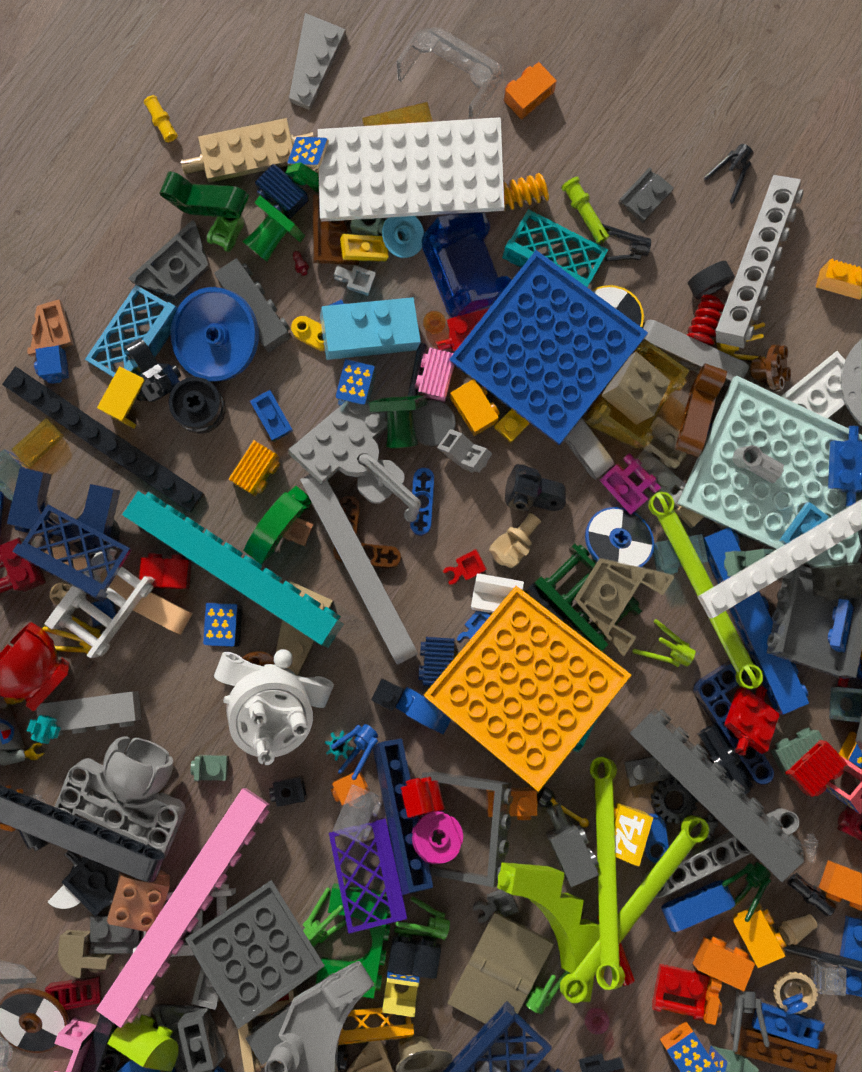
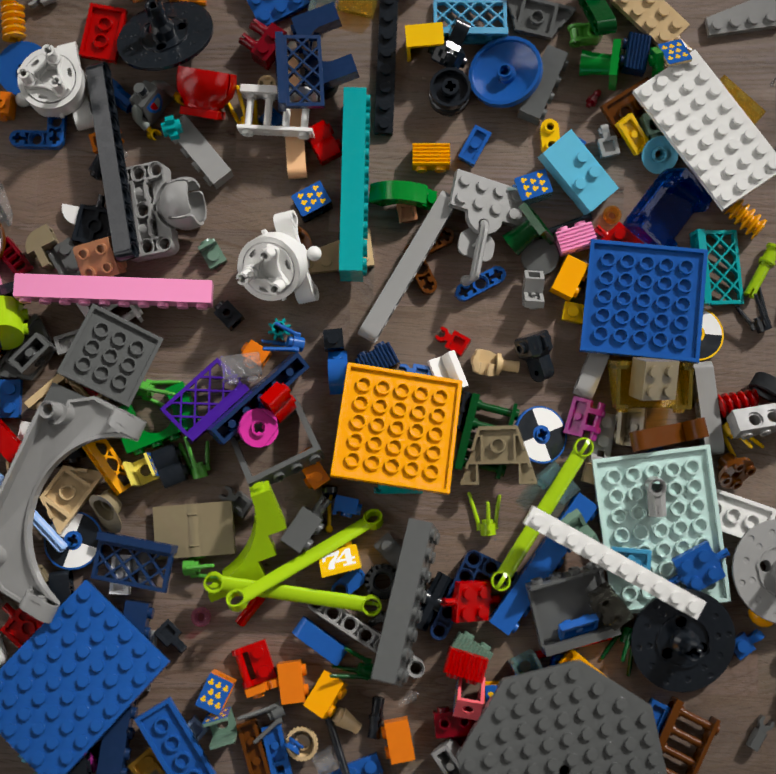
camera: 60 degrees right, 0 degrees up
(573, 789) = (346, 506): none -> blue brick

